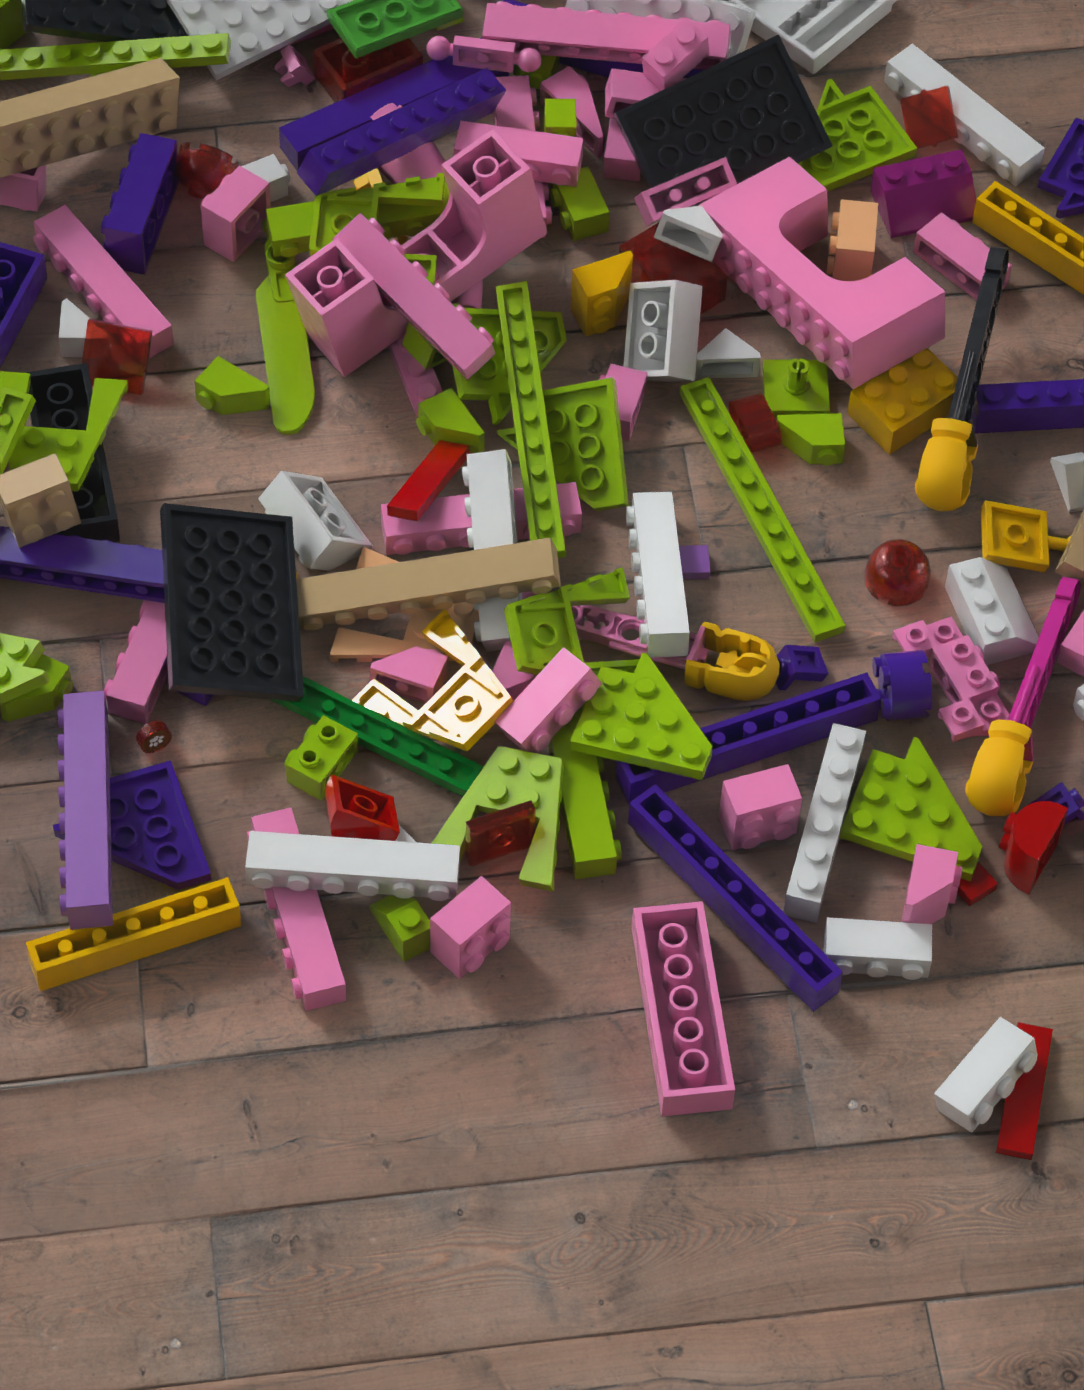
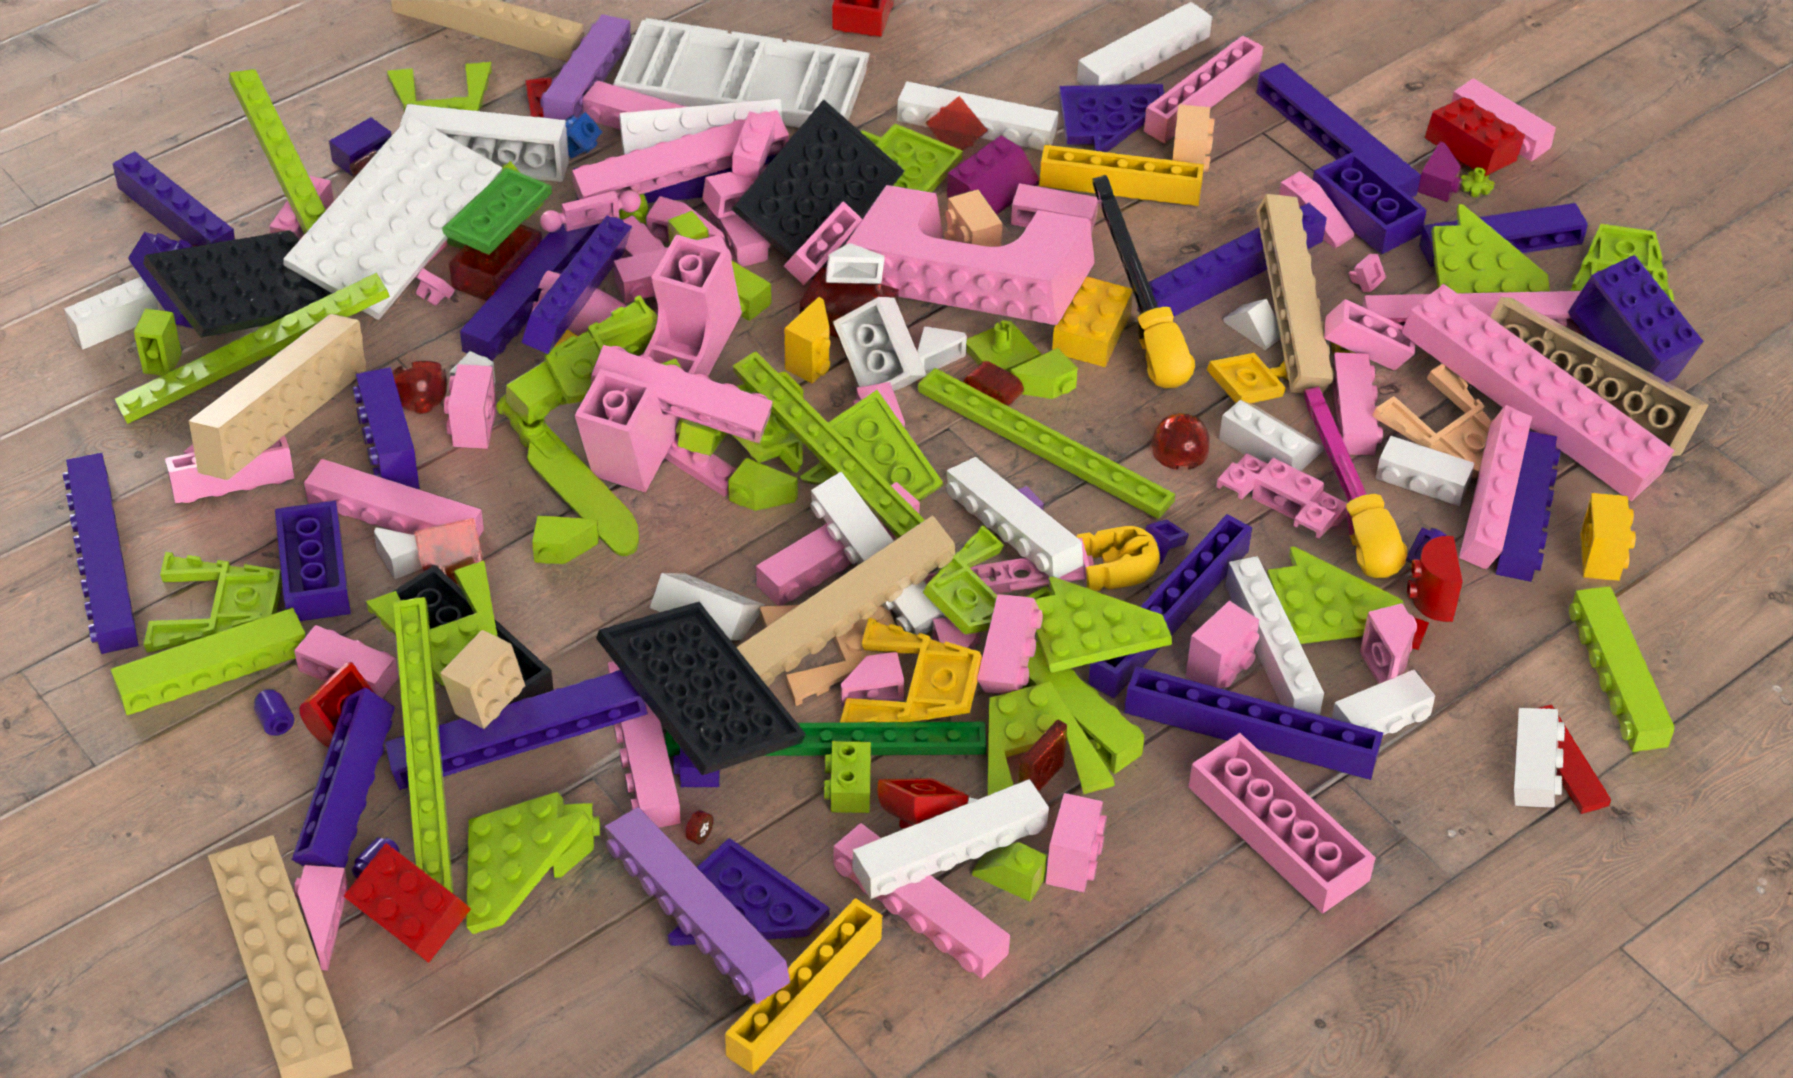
camera: 30 degrees left, 10 degrees down
(428, 480) = (780, 532): red tile -> none
(903, 685) = (1259, 508): dark purple brick -> none

